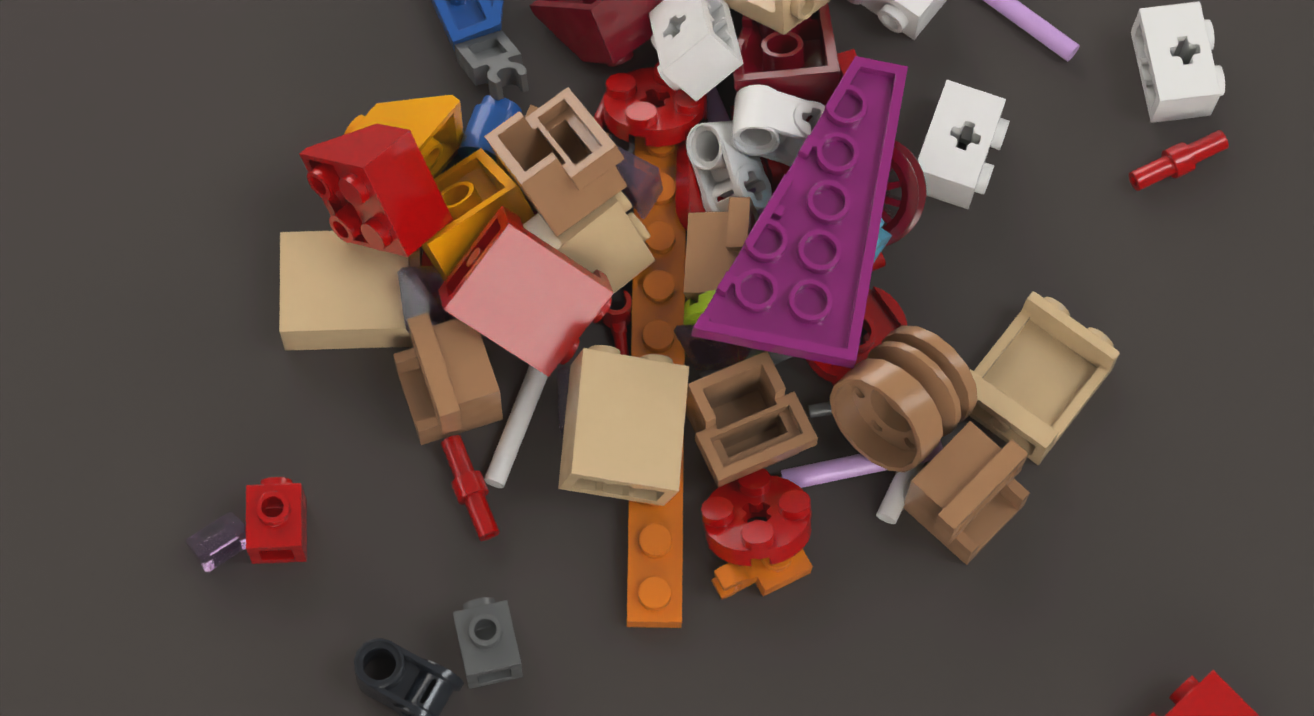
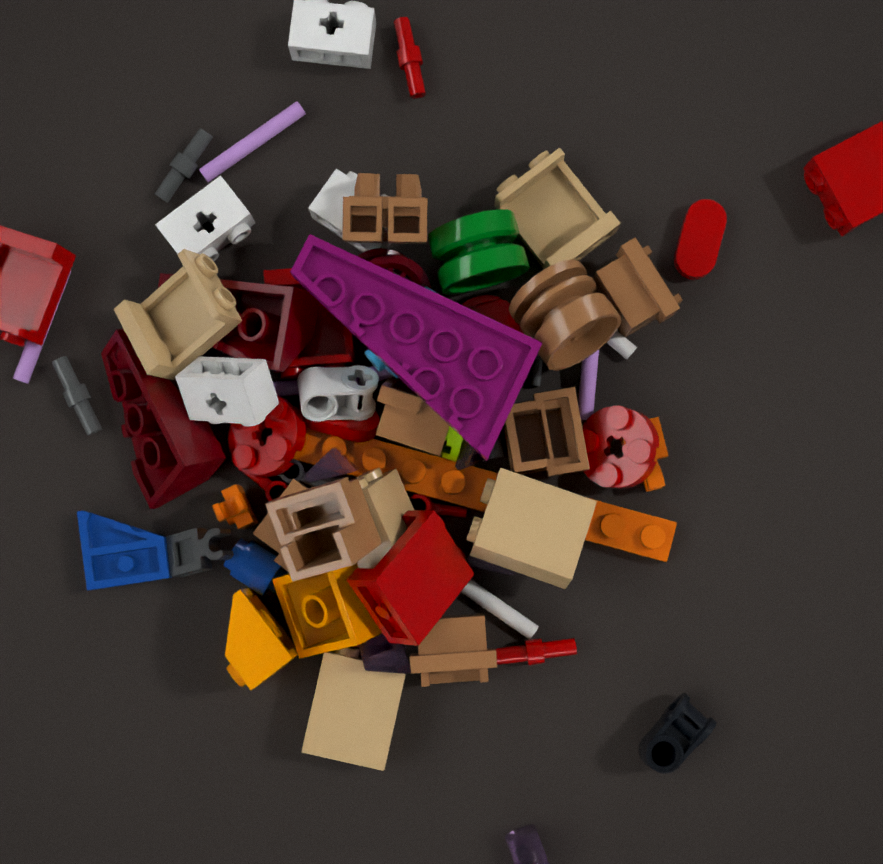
camera: 70 degrees left, 15 degrees up
(276, 521) = (528, 804): red brick -> none
(377, 189) = (305, 673): red slope -> none
(487, 642) = (660, 668): dark grey brick -> none
(556, 81) = (235, 508): none -> orange plate
(772, 123) = (318, 347): white piece -> none
(954, 283) = (477, 251): none -> green wheel
(956, 154) = (385, 218): none -> medium nougat hips
(1062, 568) = (700, 239): none -> red tile

